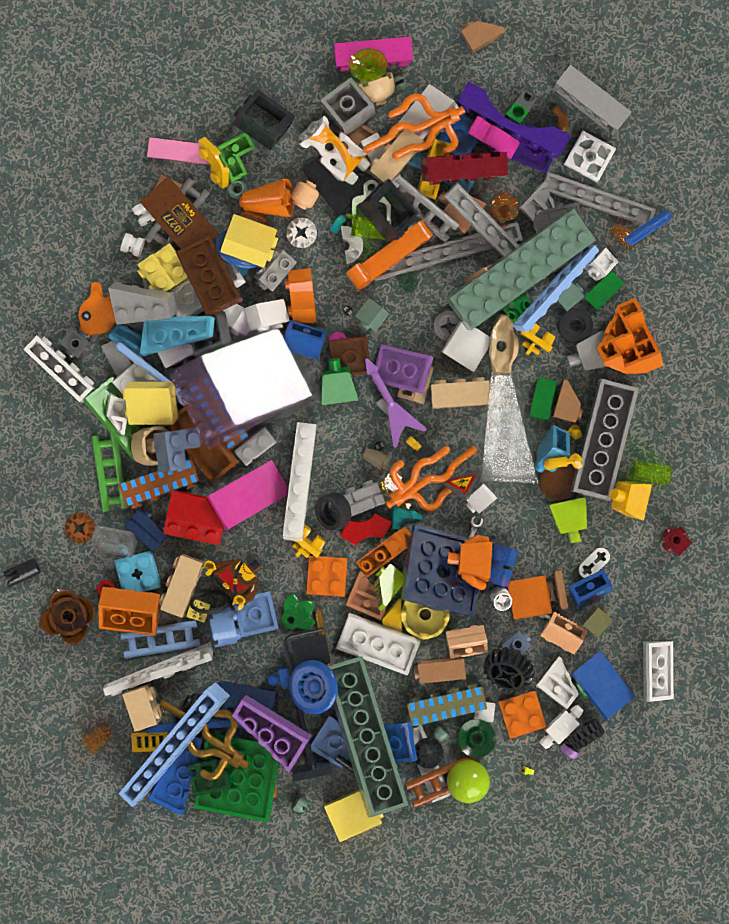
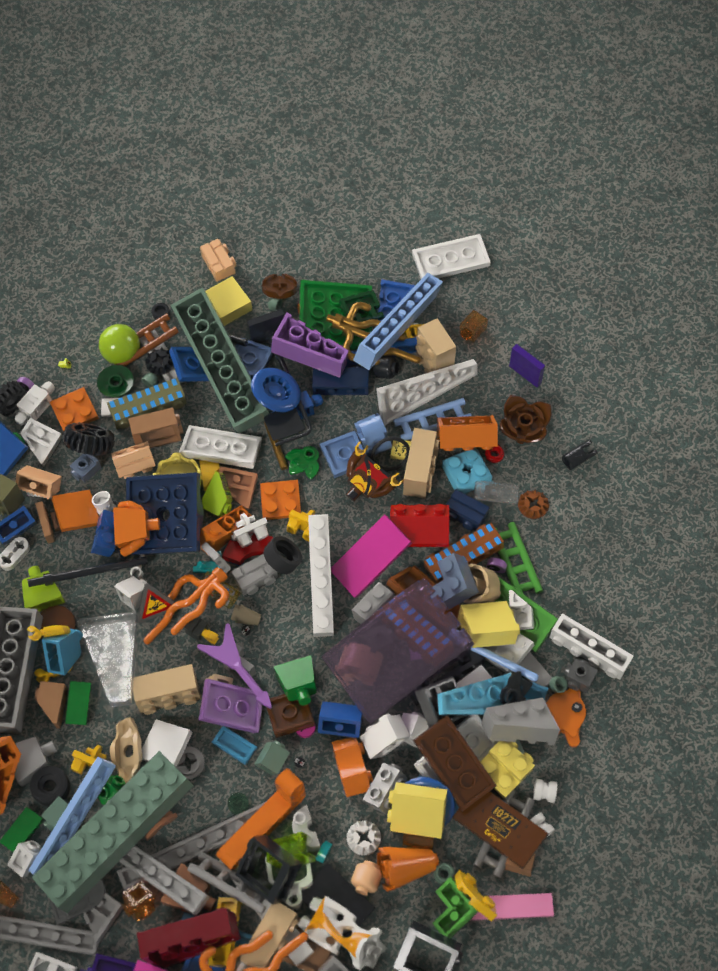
camera: 175 degrees right, 25 degrees down
(52, 677) = (527, 365): none -> dark purple tile
(98, 334) = (559, 680): none -> sand green hinge
(103, 829) = (451, 257): none -> white plate
(129, 468) = (497, 565): none -> medium lavender tile
(140, 333) = (515, 689): none -> black plate
(291, 824) = (279, 286): none -> reddish brown tile
(352, 870) = (217, 259): none -> light nougat brick
(369, 539) = (257, 527): none -> white hips
(397, 514) = (216, 557): none -> light grey tile
(404, 335) = (234, 745): none -> dark azure tile
(421, 818) = (159, 310): none -> black tile
(560, 522) = (48, 579): none -> black bar

